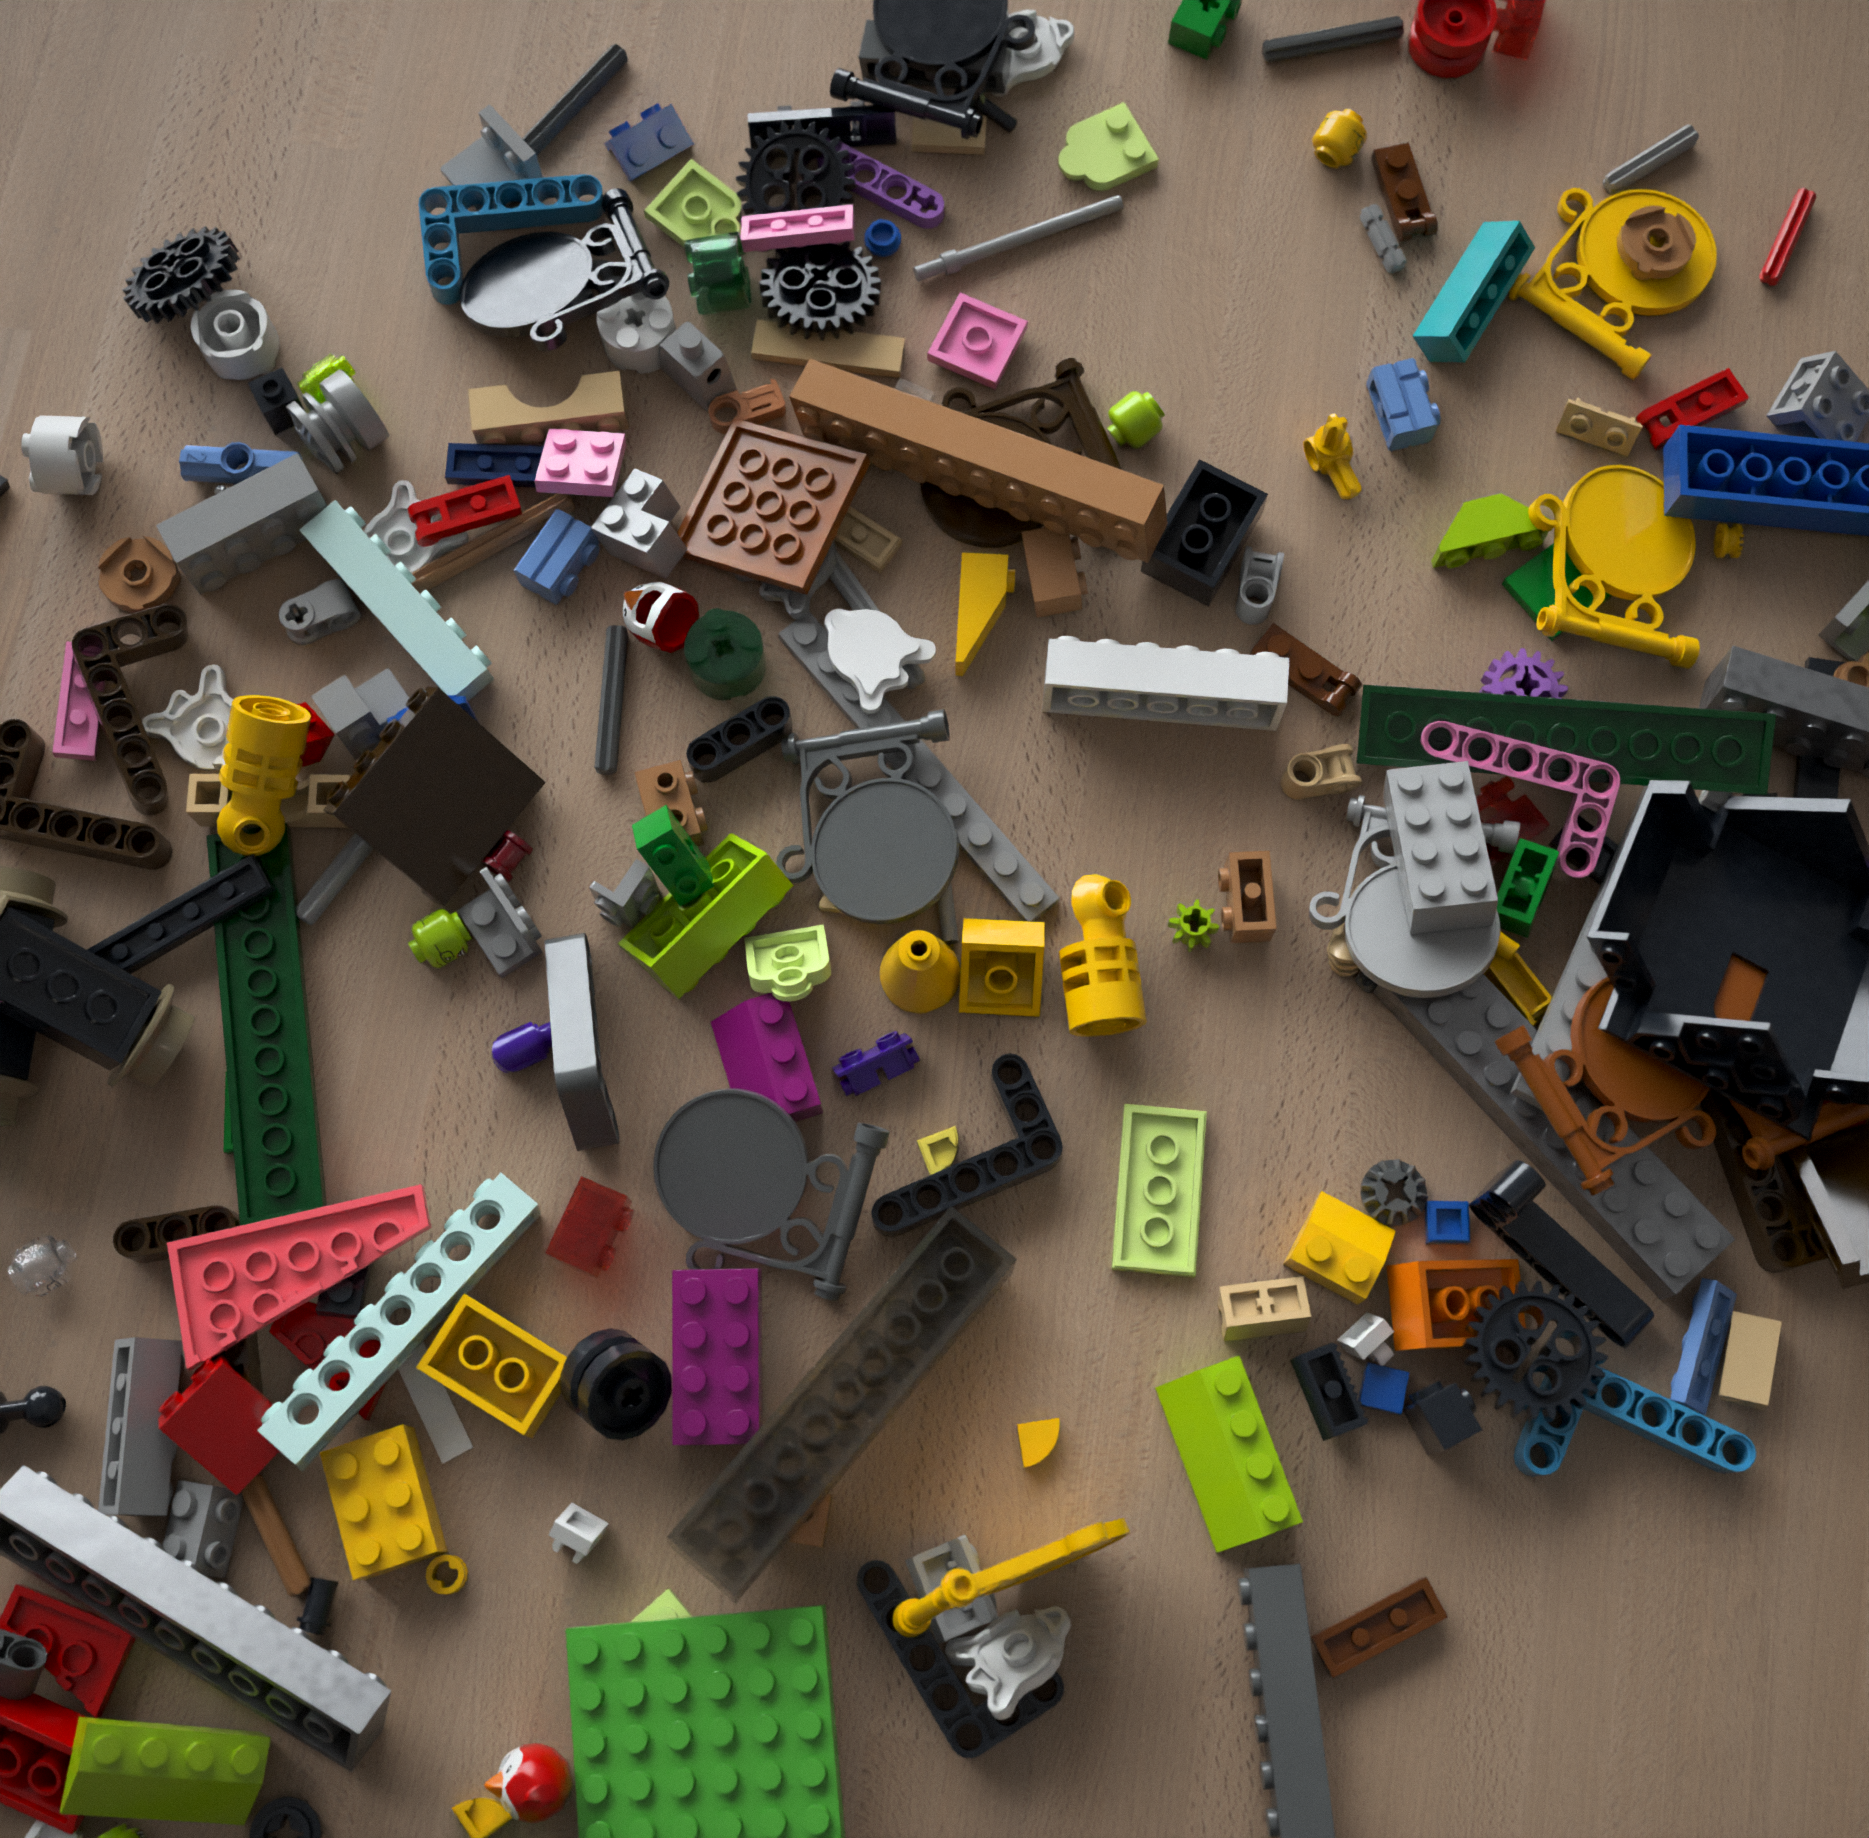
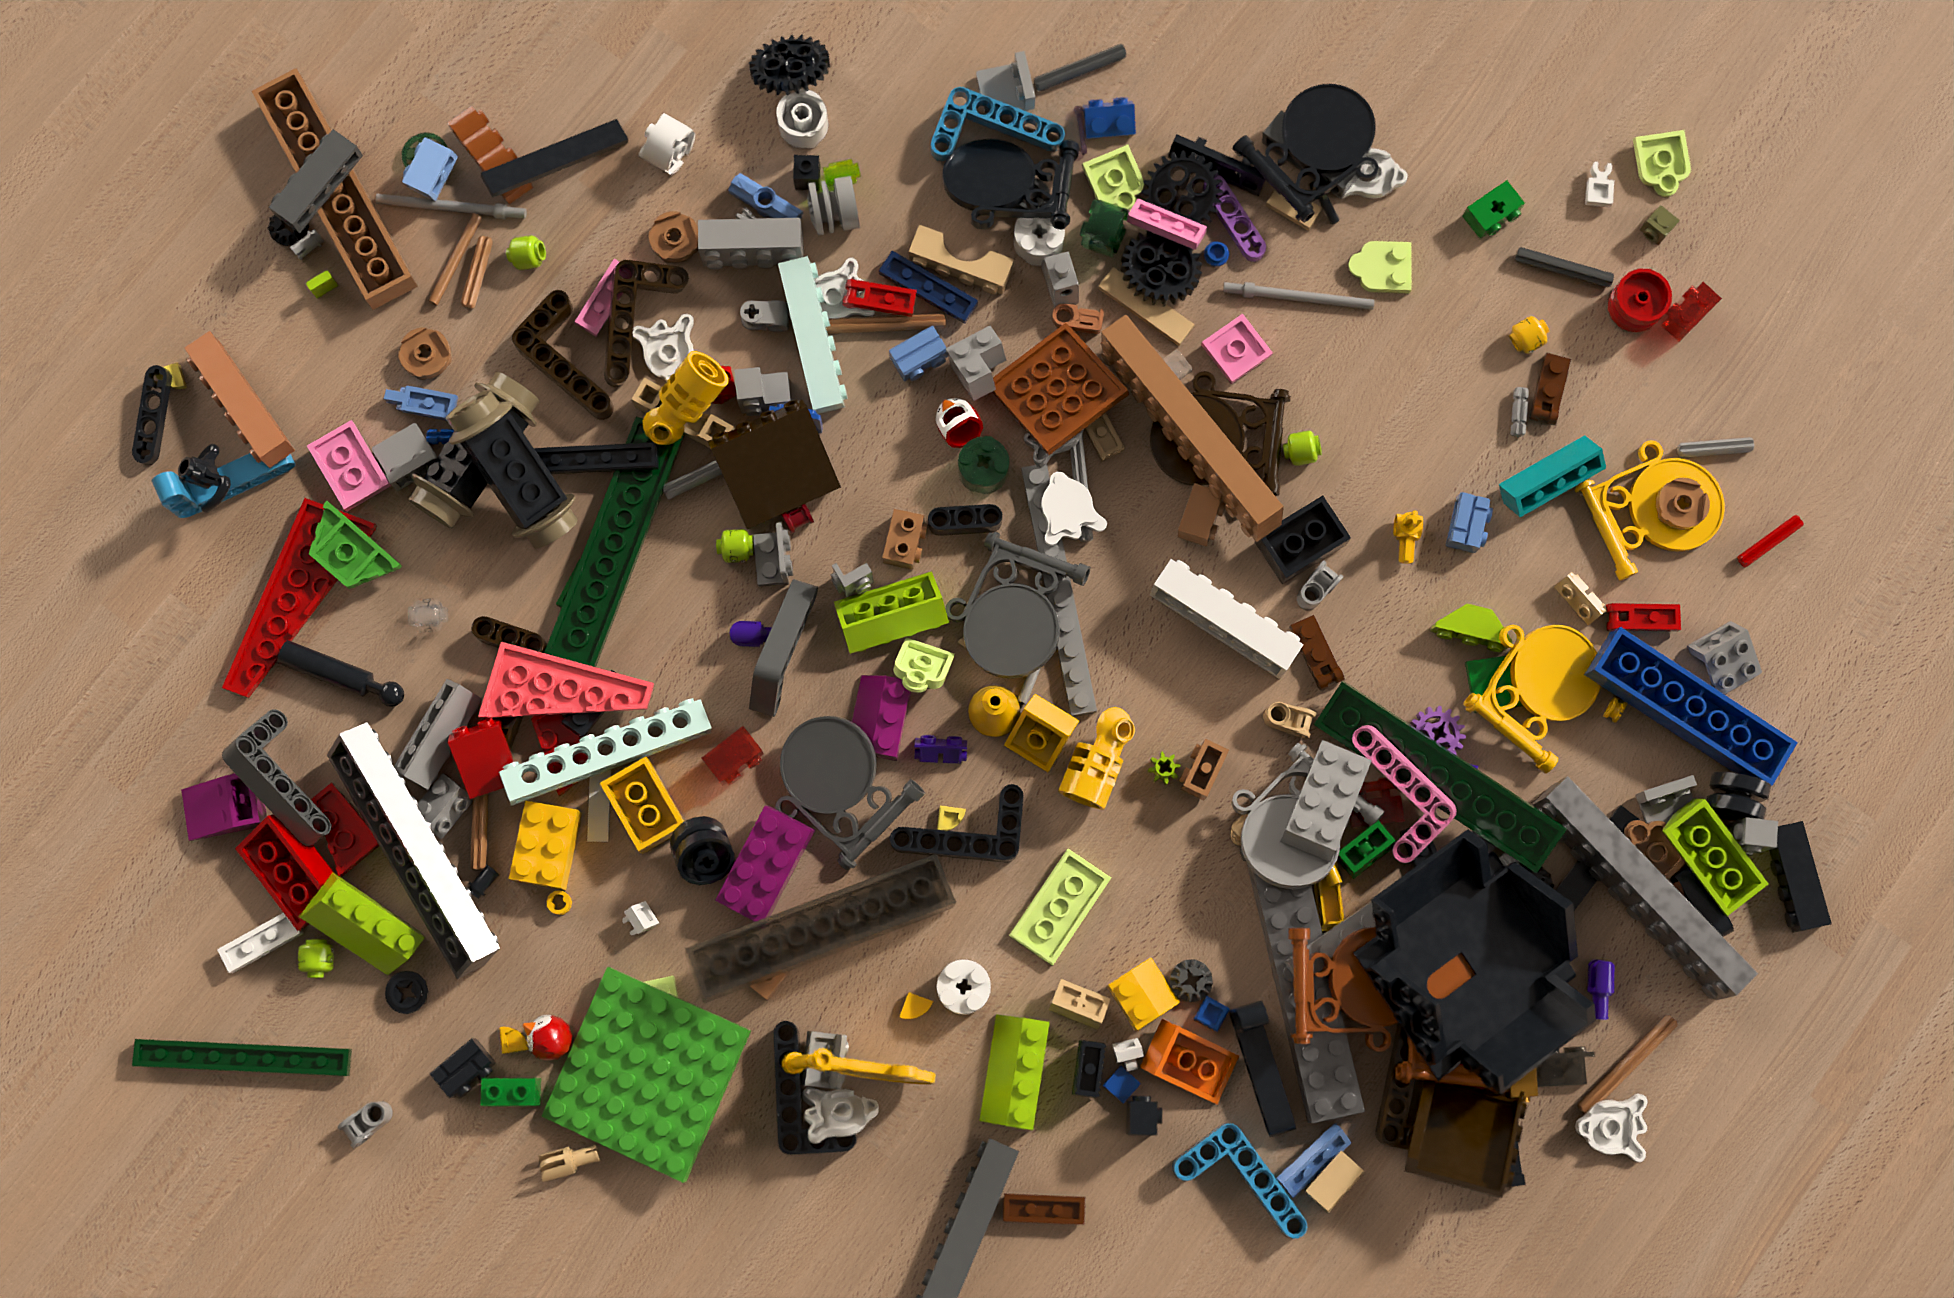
camera: 25 degrees right, 5 degrees up
(580, 462) = (961, 305): bright pink plate -> none
(602, 153) = (1078, 111): none -> hinge
(611, 700) = (905, 456): dark grey axle -> none
(673, 855) = (889, 570): green brick -> none
(981, 601) = (1151, 509): yellow slope -> none
(1102, 1351) = (975, 977): none -> white brick
(1568, 1374) = (1224, 1132): black gear -> none

